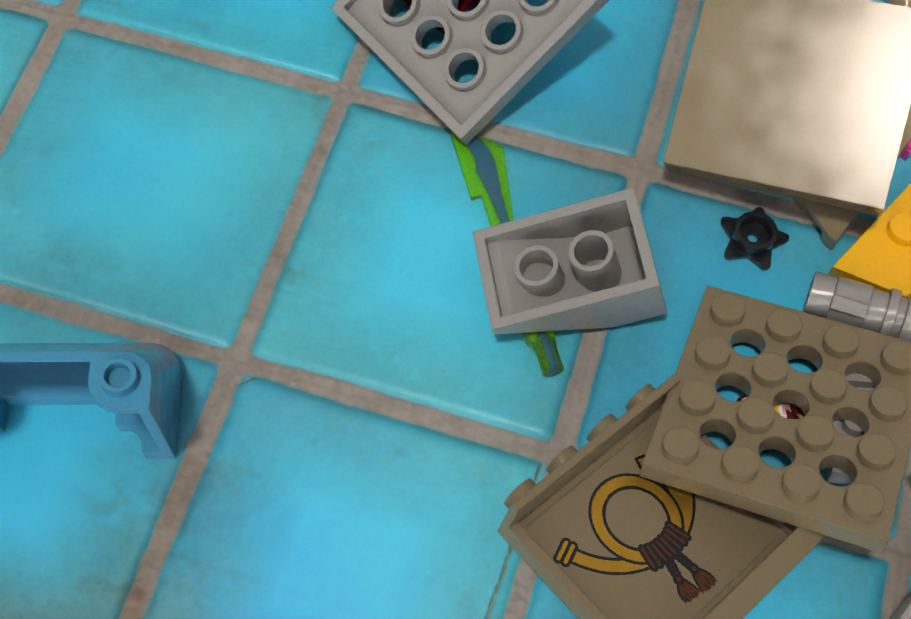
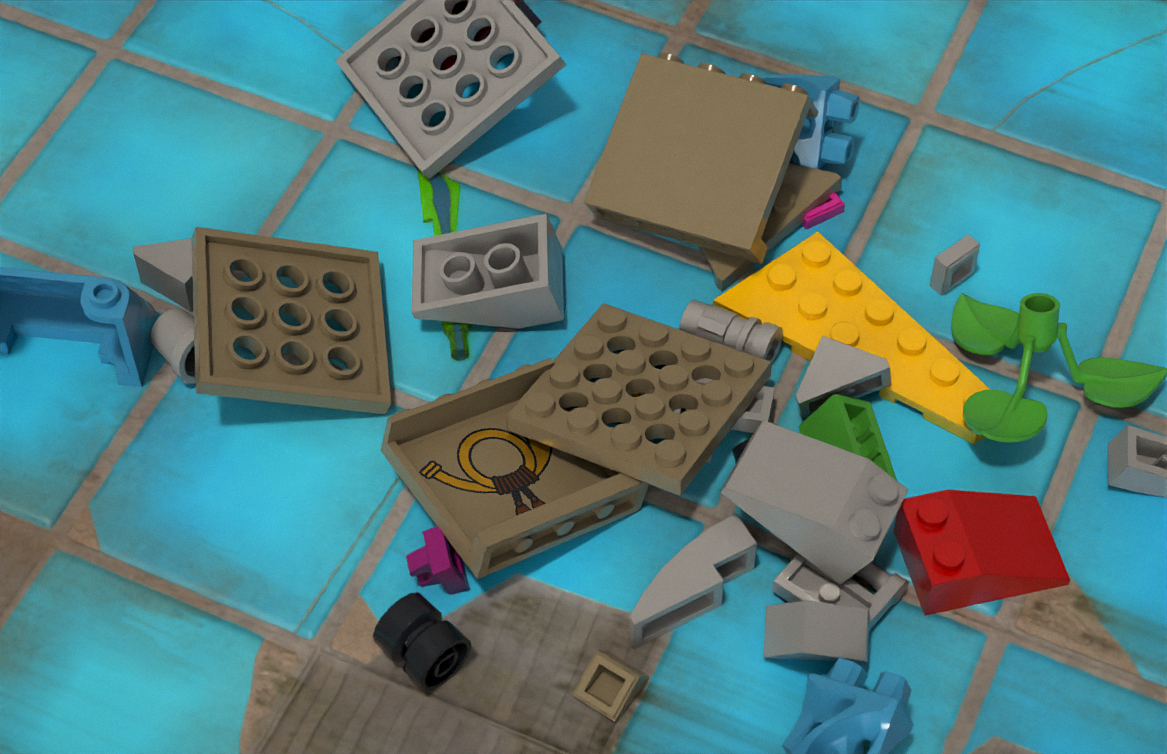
camera: 10 degrees right, 10 degrees down
(202, 297) = (167, 269): none -> light grey slope
(226, 402) = (174, 340): none -> light grey piece
(342, 447) = (269, 376): none -> dark tan piece
(755, 224) = (655, 263): black plate -> none

